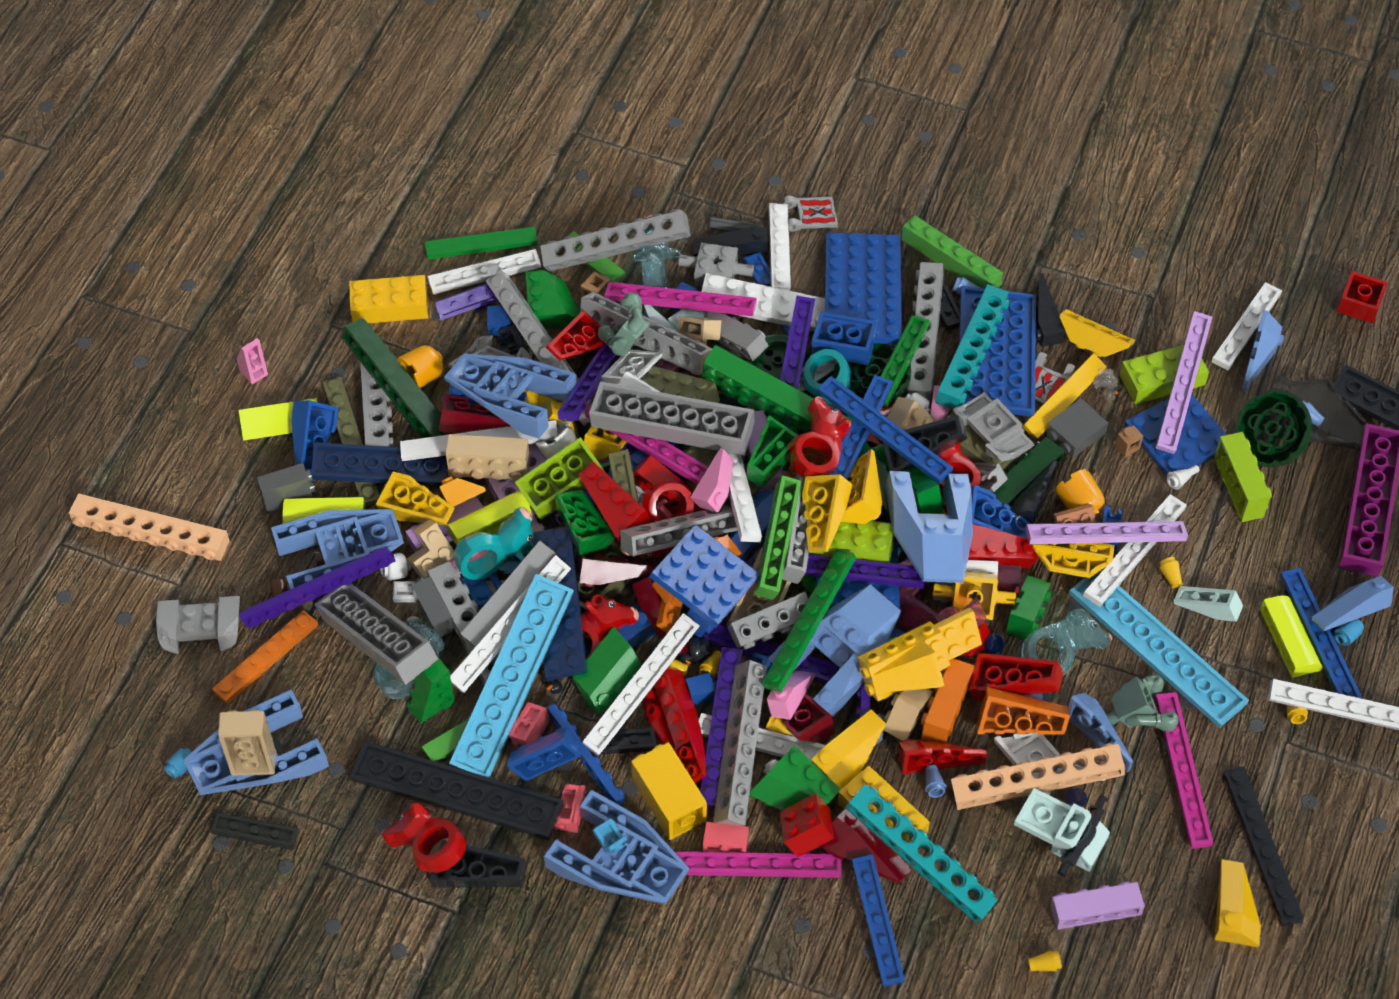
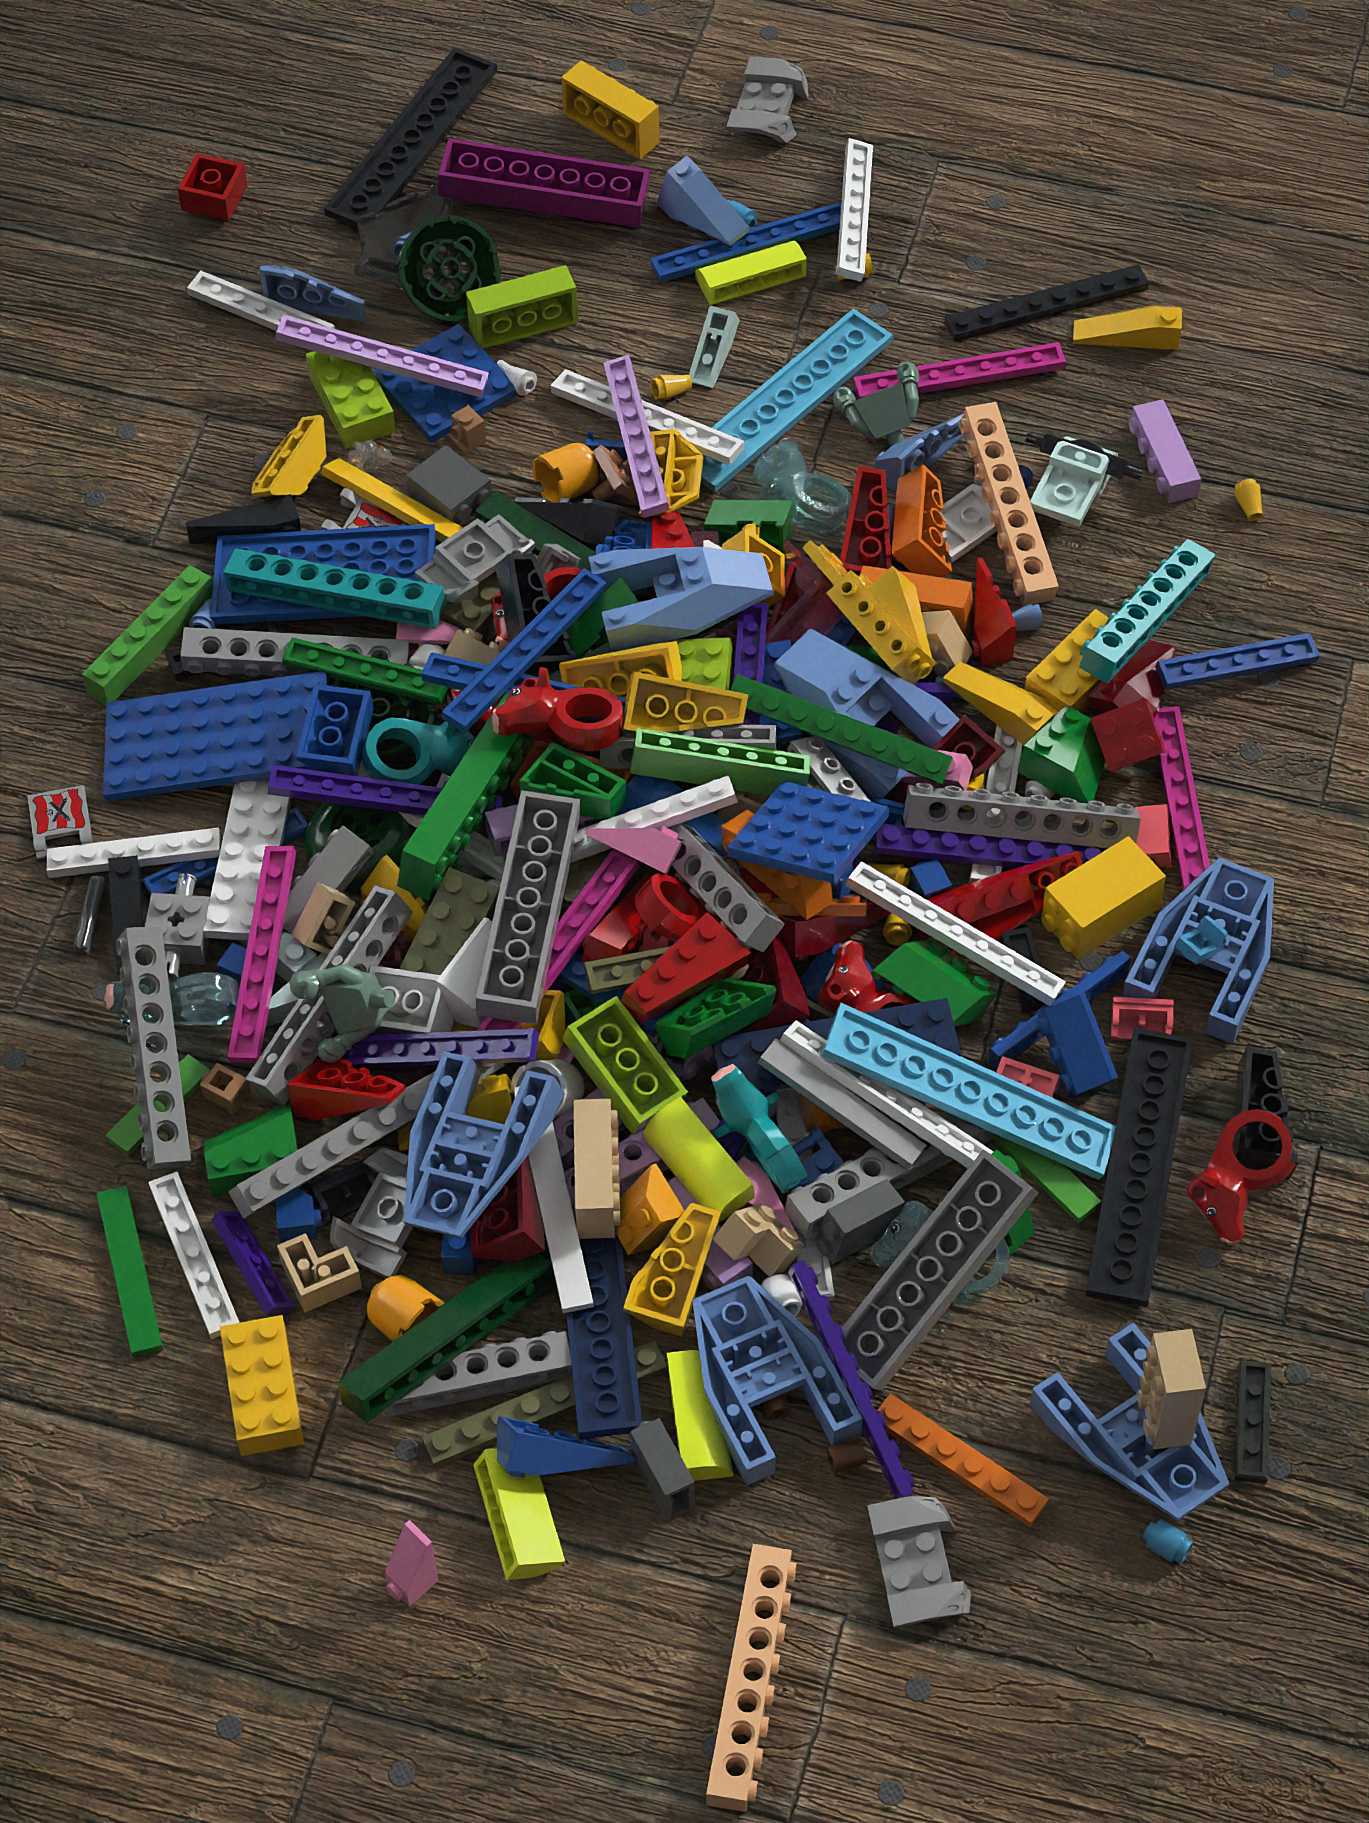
camera: 95 degrees left, 0 degrees up
(454, 324) = (315, 1278): none -> tan brick

